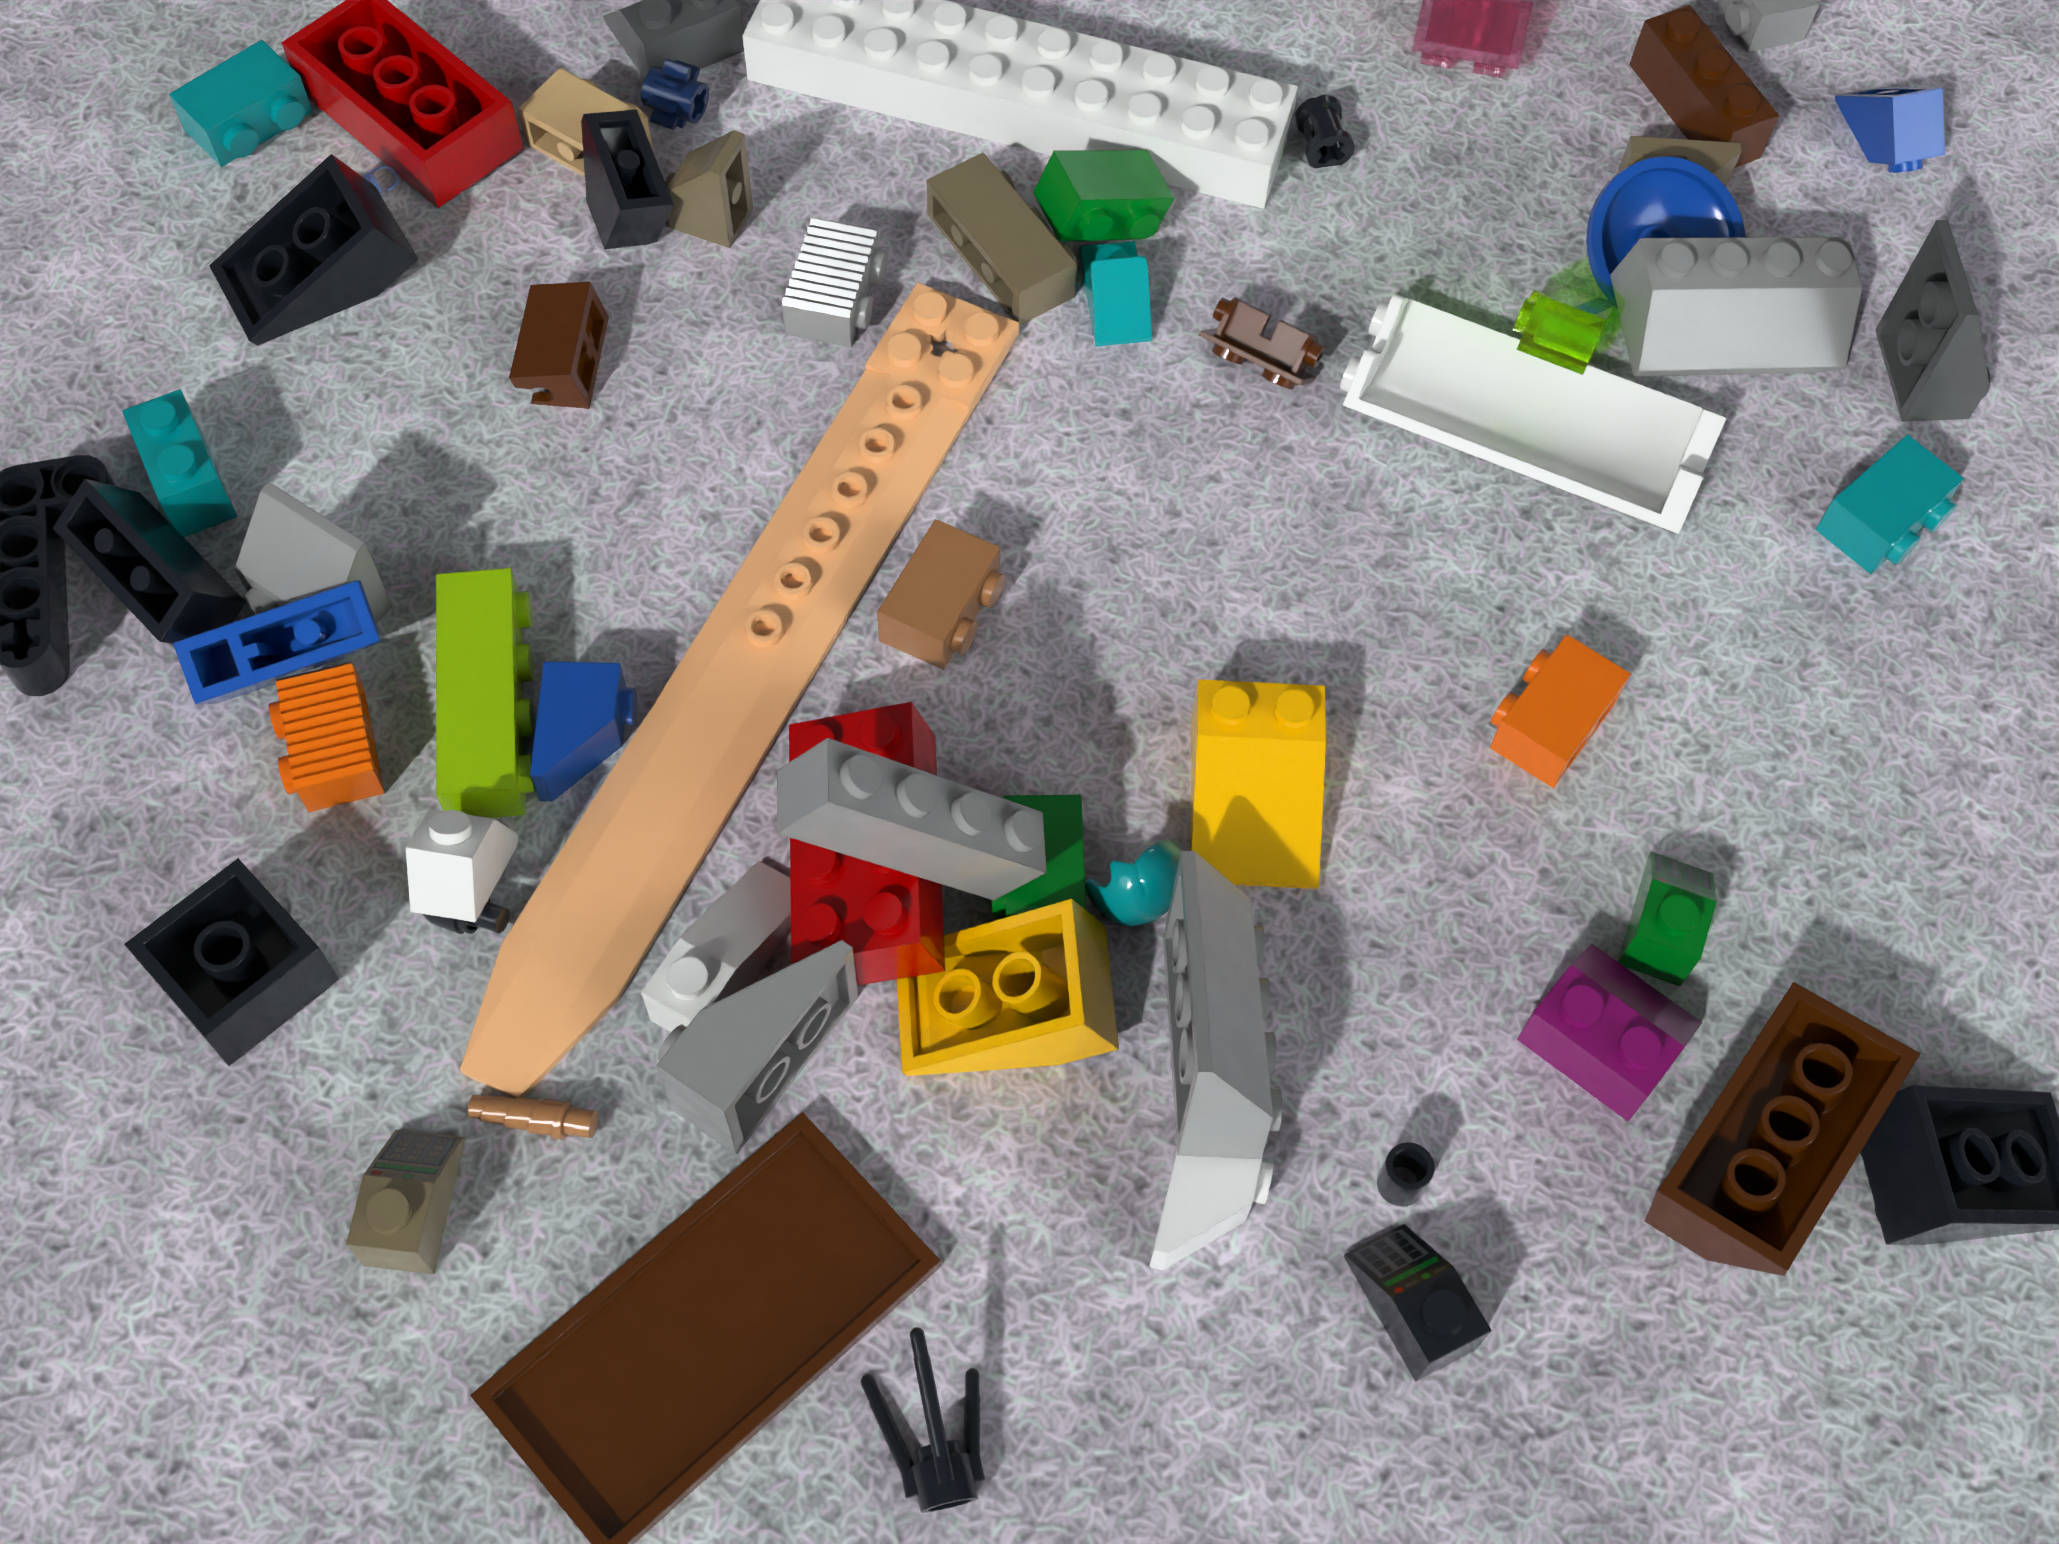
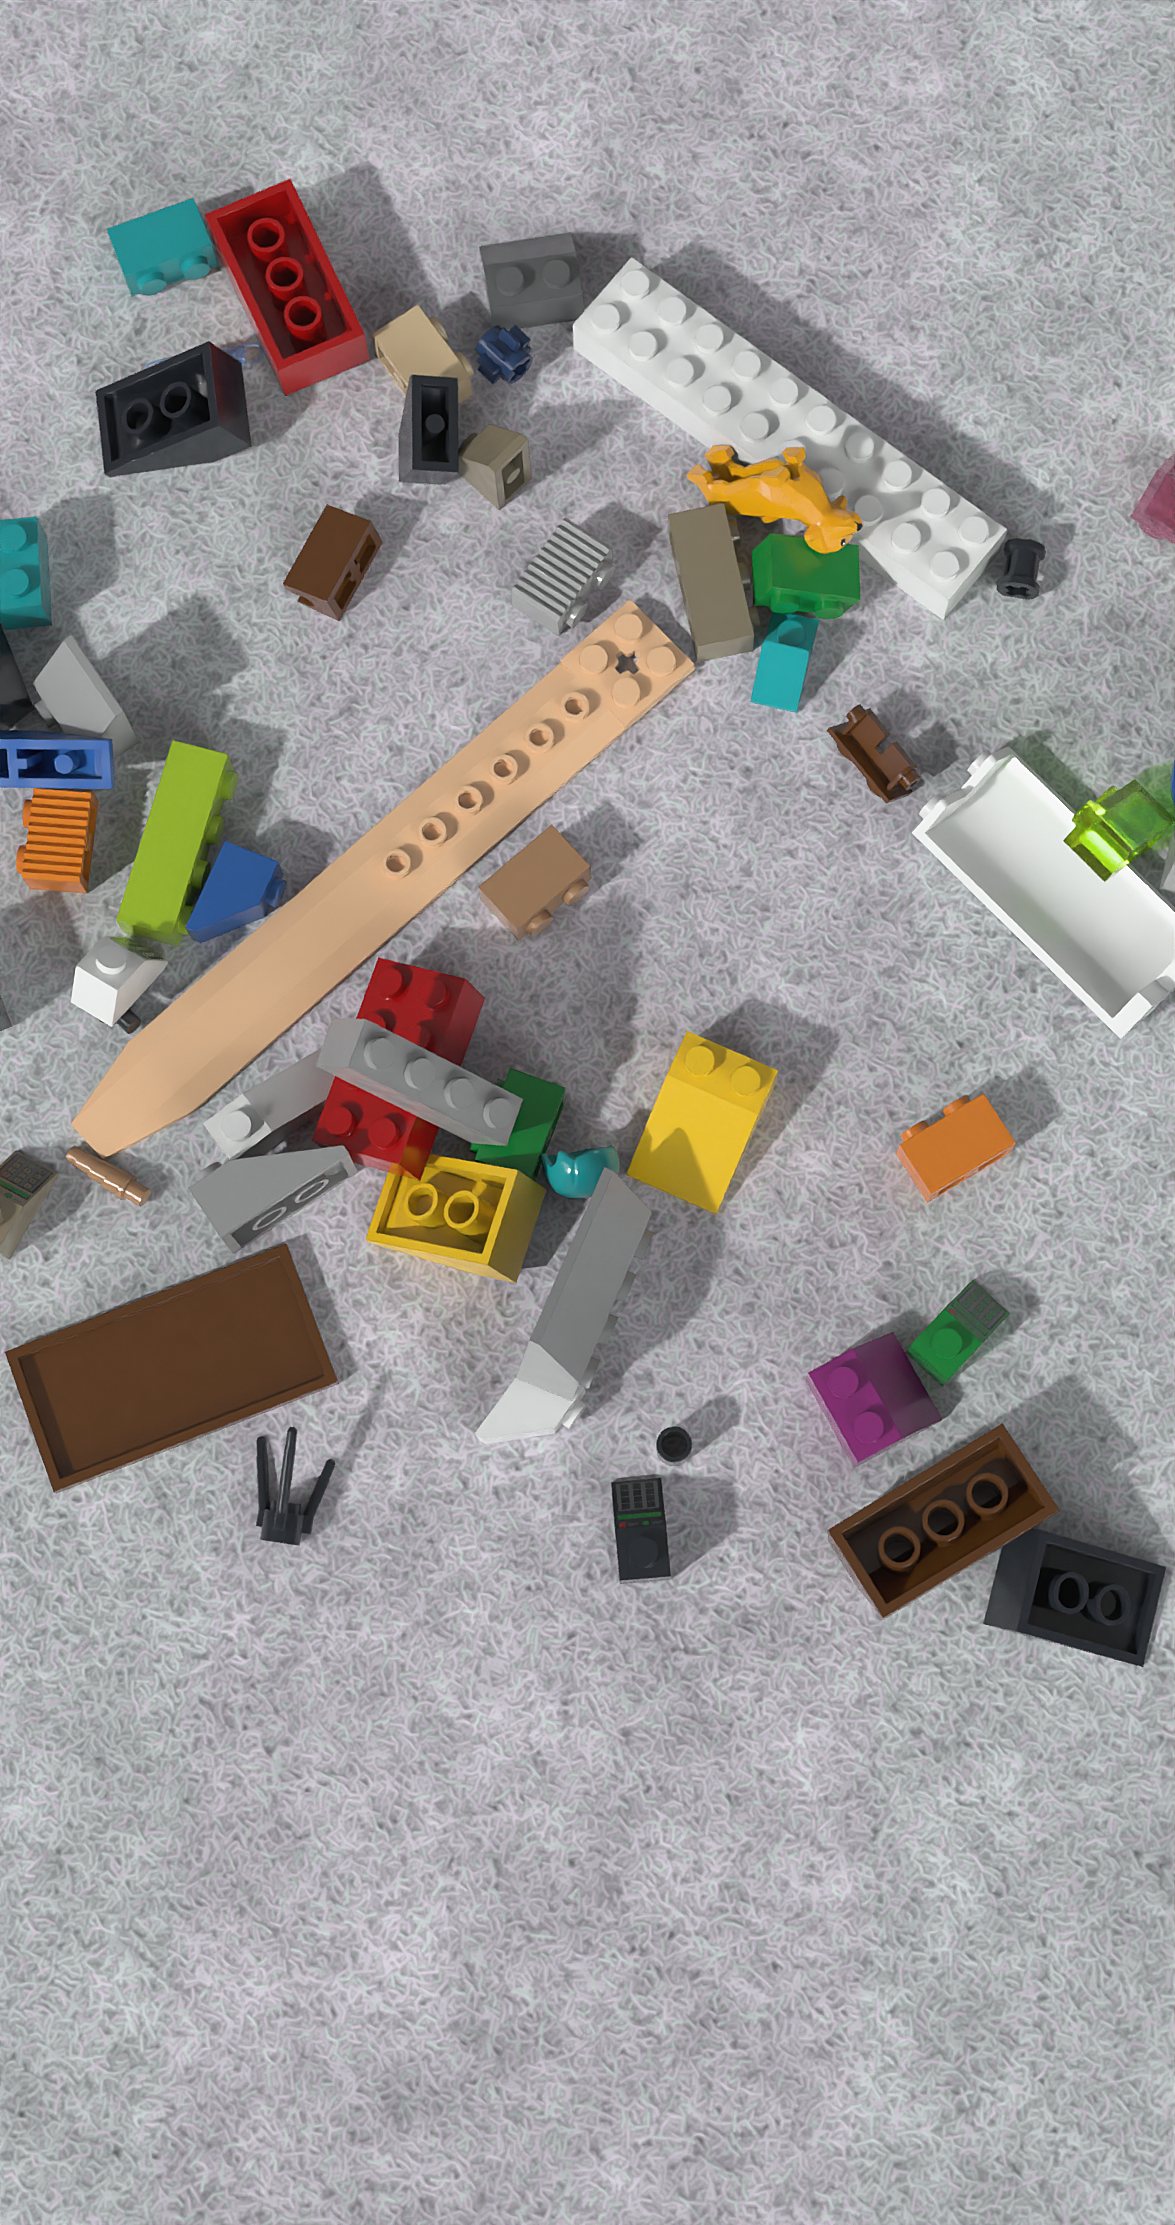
camera: 30 degrees right, 15 degrees up
(1038, 111) = (777, 491): none -> light orange animal

